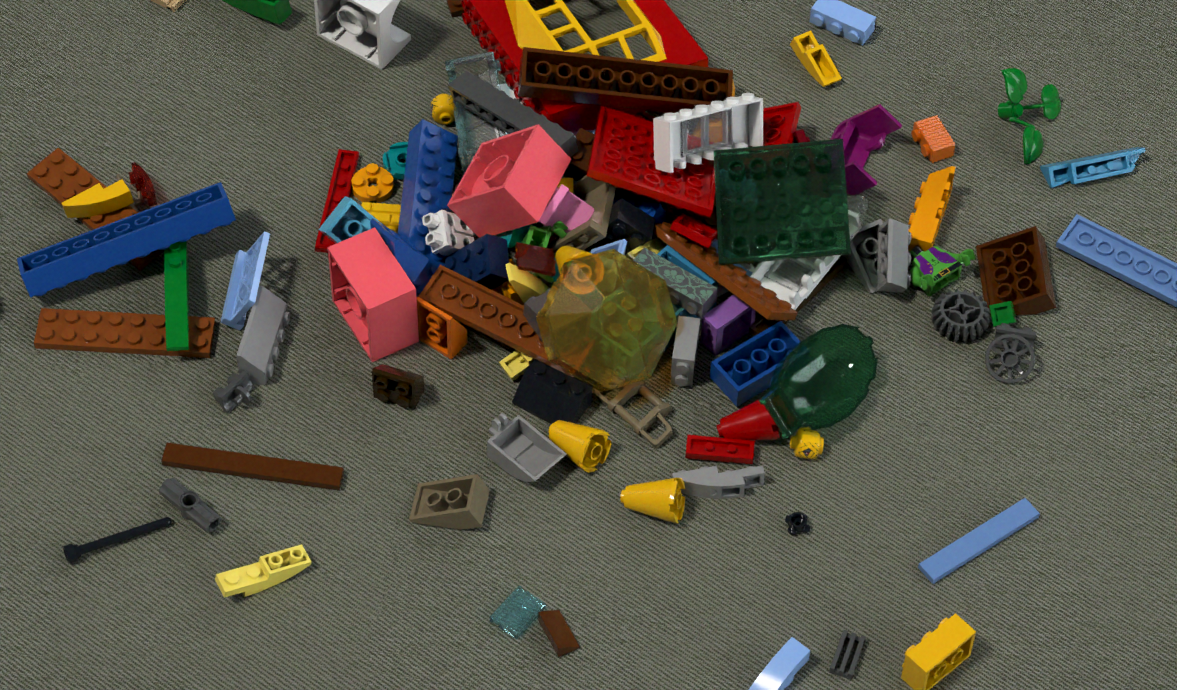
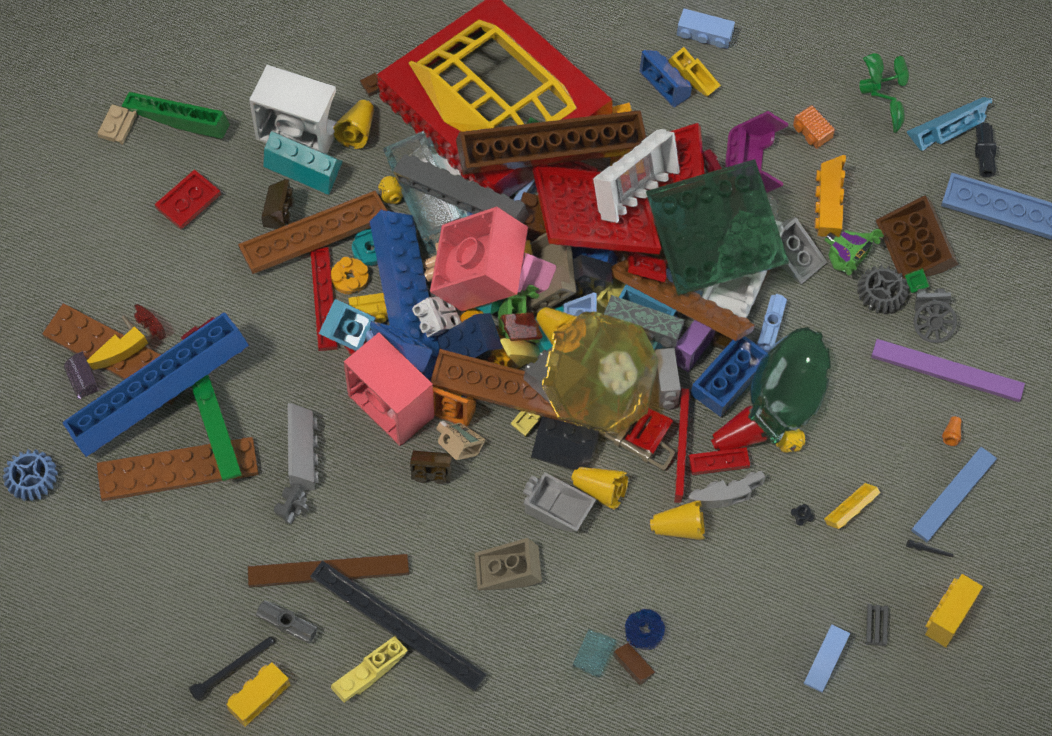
camera: 15 degrees left, 10 degrees up
(53, 221) = (80, 376): none -> clear purple brick
(135, 569) = (257, 694): none -> yellow brick
(223, 76) = (187, 199): none -> red plate
(244, 283) = (271, 398): light blue fence -> none
(310, 536) = (398, 626): none -> black plate
(317, 99) = (277, 205): none -> dark brown slope
(342, 133) = (311, 232): none -> dark orange plate
(355, 62) = (301, 162): none -> teal slope
(425, 38) = (355, 125): none -> yellow cone
(437, 366) = (459, 440): none -> tan torso
(577, 611) = (648, 640): none -> clear blue plate
(648, 403) = (653, 432): none -> red plate
(682, 423) = (681, 445): none -> red tile
(780, 57) = (664, 77): none -> blue slope
(827, 315) = (774, 313): none -> light blue piece
(856, 526) = (852, 506): none -> yellow plate
(893, 257) = (814, 250): light grey slope -> none
(922, 585) = (919, 546): none -> black piece
(996, 476) = (952, 433): none -> orange cone
(1011, 413) = (948, 370): none -> medium lavender tile
(1123, 200) = (985, 150): none -> black piece

